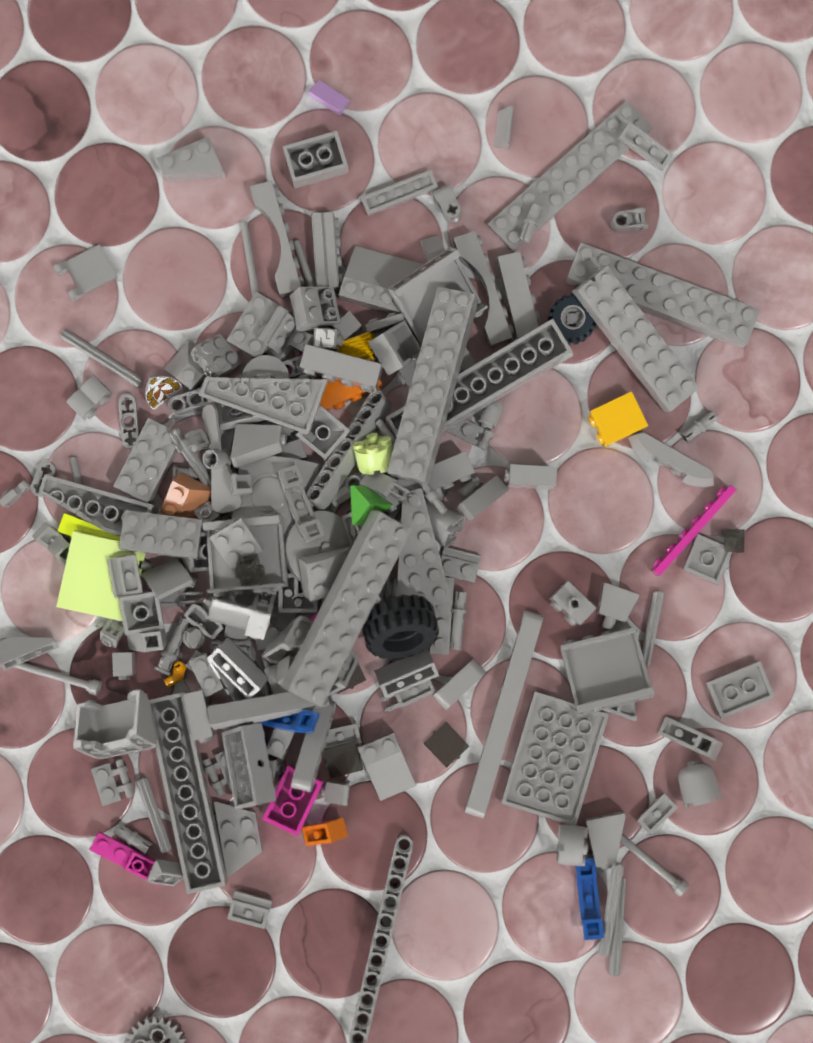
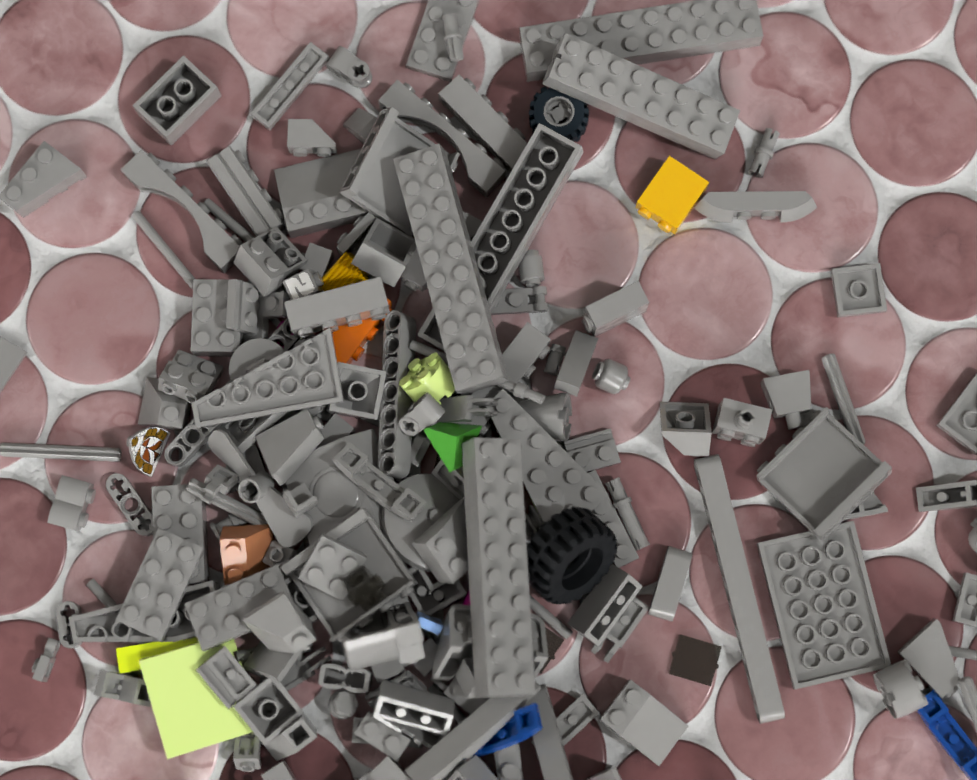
camera: 30 degrees left, 5 degrees down
(116, 487) = (160, 584): none -> light grey plate
(169, 654) = (326, 740): light grey pin -> none
(177, 674) = (348, 757): light orange arm -> none
(180, 562) = (281, 625): none -> light grey slope
(280, 617) = (429, 623): none -> light blue tile
(329, 97) = (153, 27): lavender slope -> none
(342, 759) = (590, 744): clear smoke piece -> none
(355, 474) = (421, 415): none -> light grey piece
(364, 658) = (549, 618): none -> light grey bar
(390, 235) = (308, 138): none -> light grey slope
(502, 521) = (611, 376): none -> light grey head
(533, 585) = (687, 427): none -> light grey slope
(697, 524) = (822, 276): dark pink plate -> none
(733, 540) = (874, 252): clear smoke panel -> none

